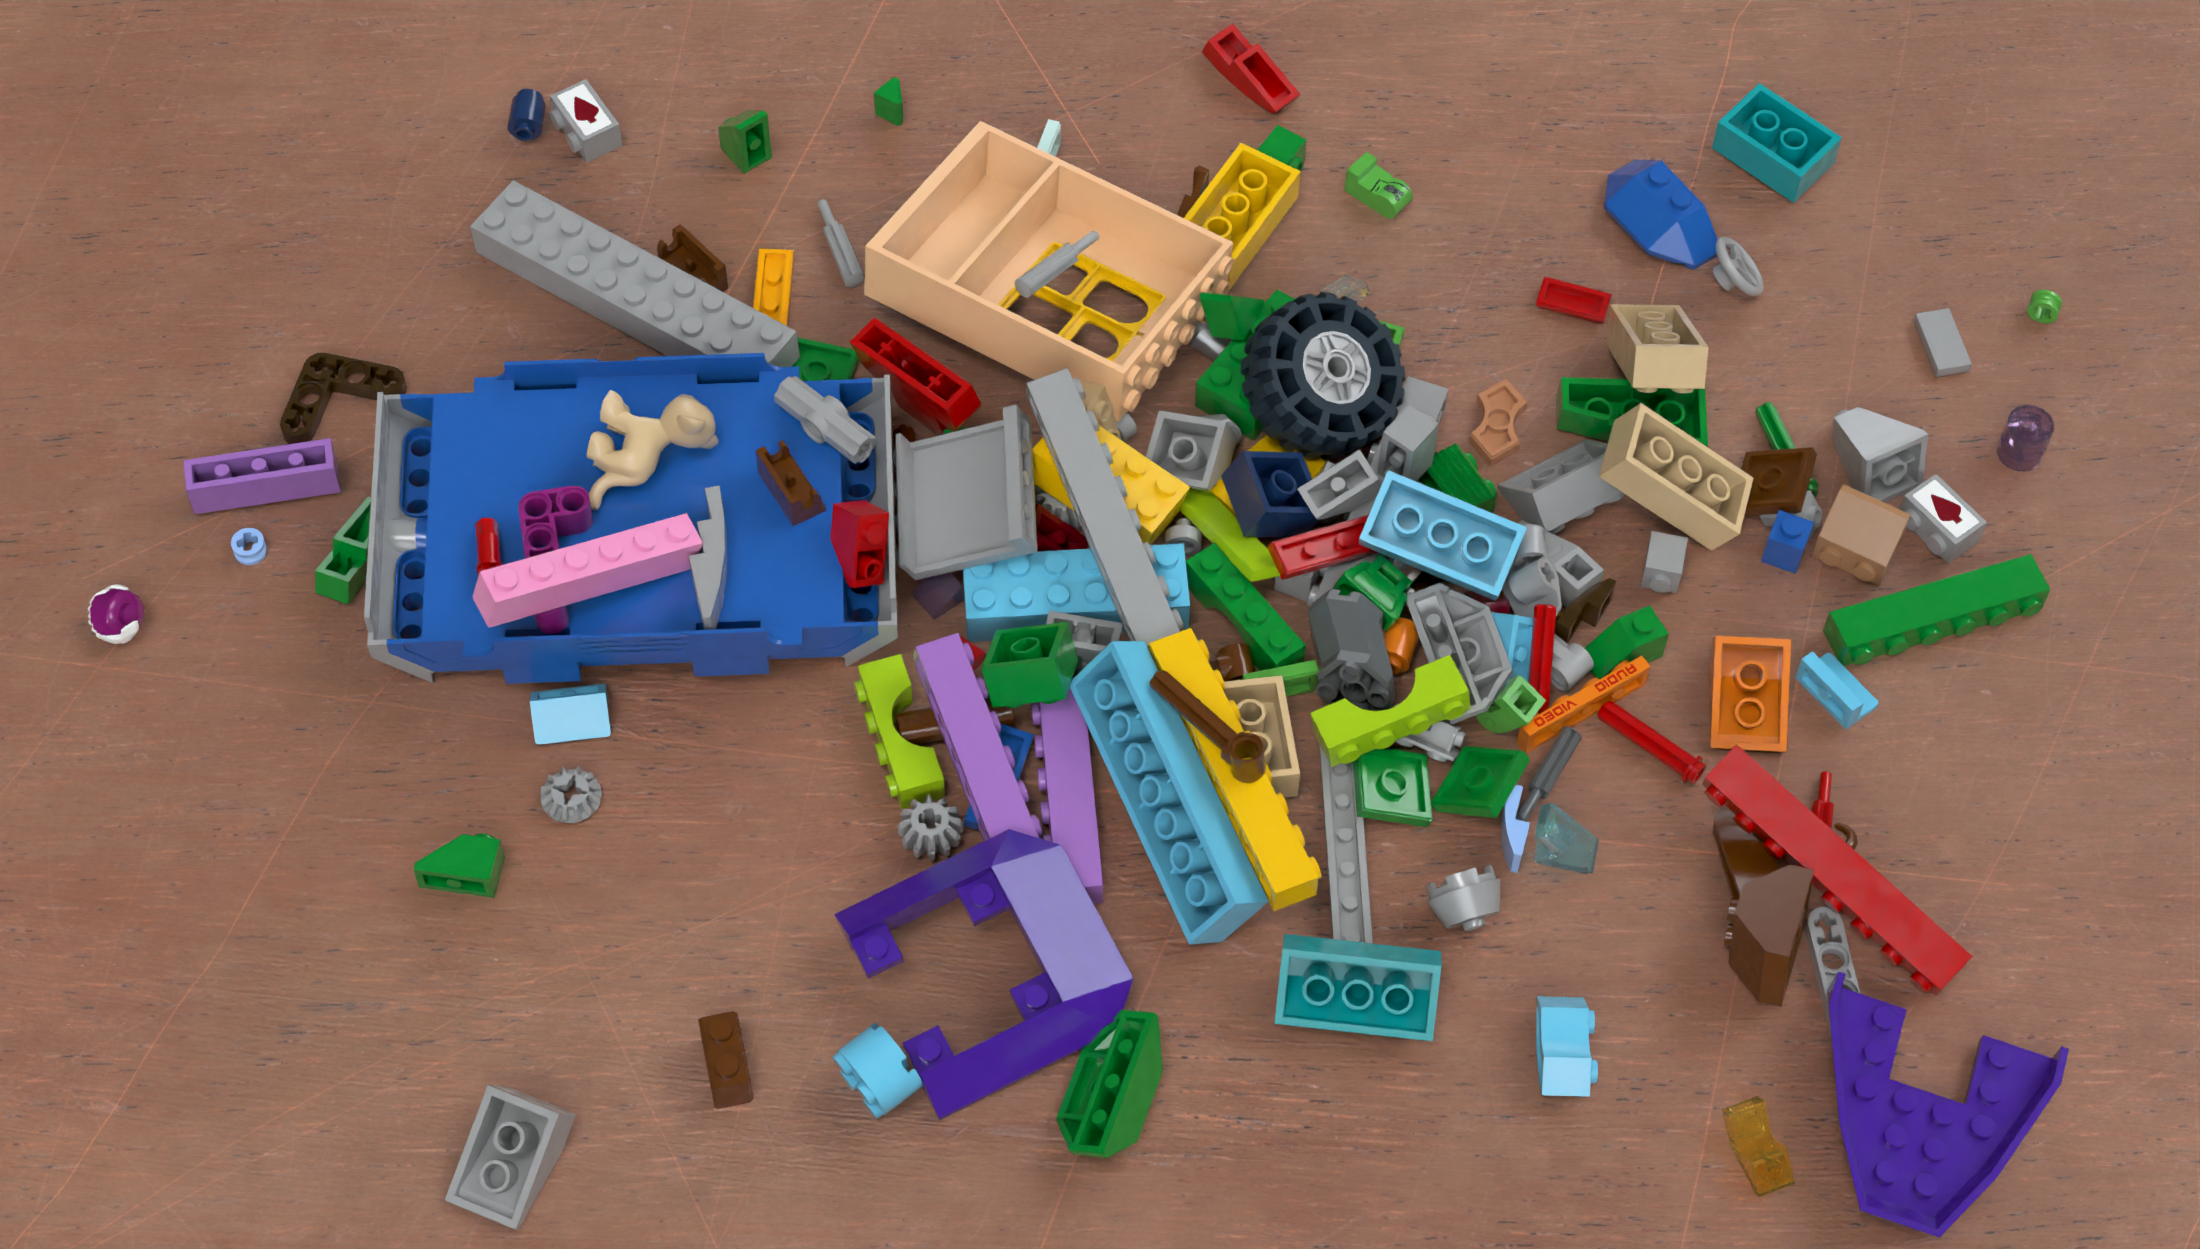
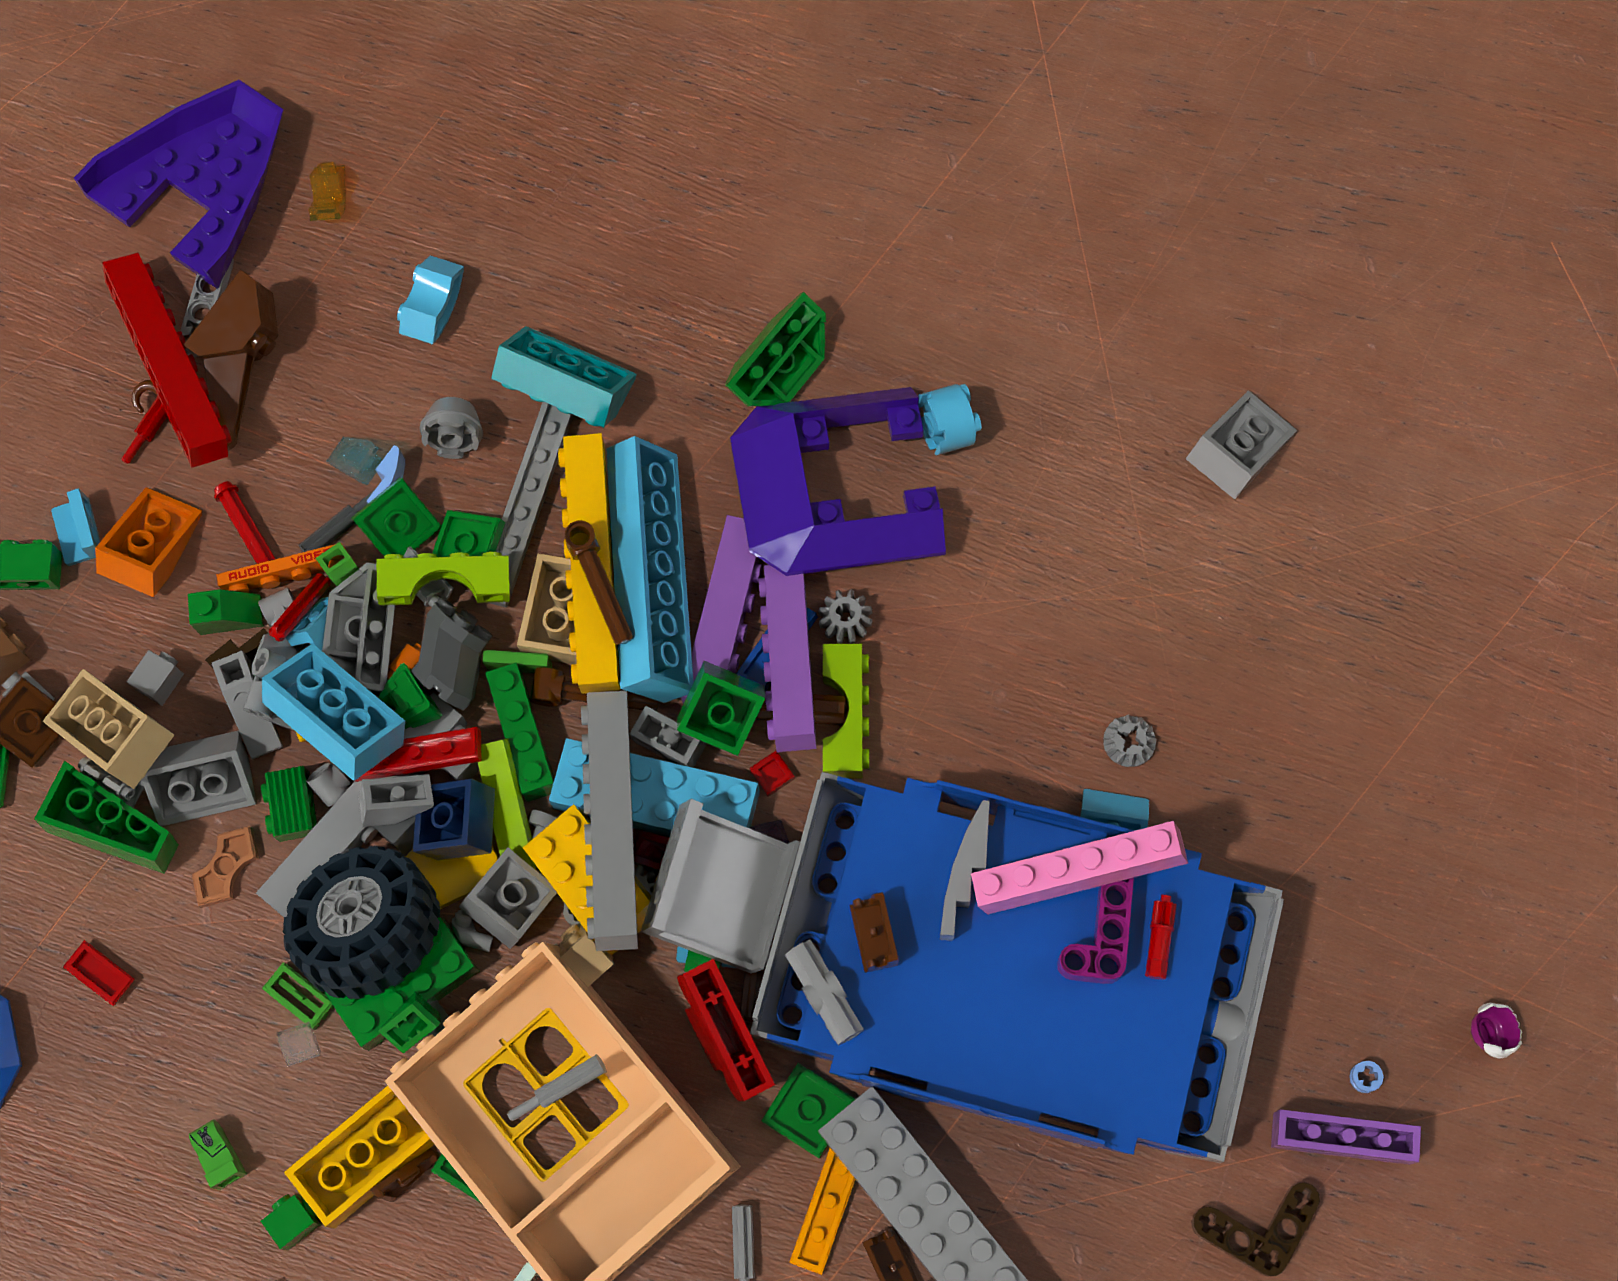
camera: 155 degrees left, 15 degrees up
(346, 565) = (1274, 1035): green slope -> none
(463, 866) = (1231, 694): green slope -> none
(682, 423) = (957, 1010): tan animal -> none
(726, 1059) = (1060, 467): reddish brown brick -> none
(860, 541) = (829, 857): red slope -> none
(1408, 444) = (320, 816): light grey brick -> none
(1657, 347) = (57, 861): tan brick -> none
(1787, 541) = (45, 663): blue brick -> none

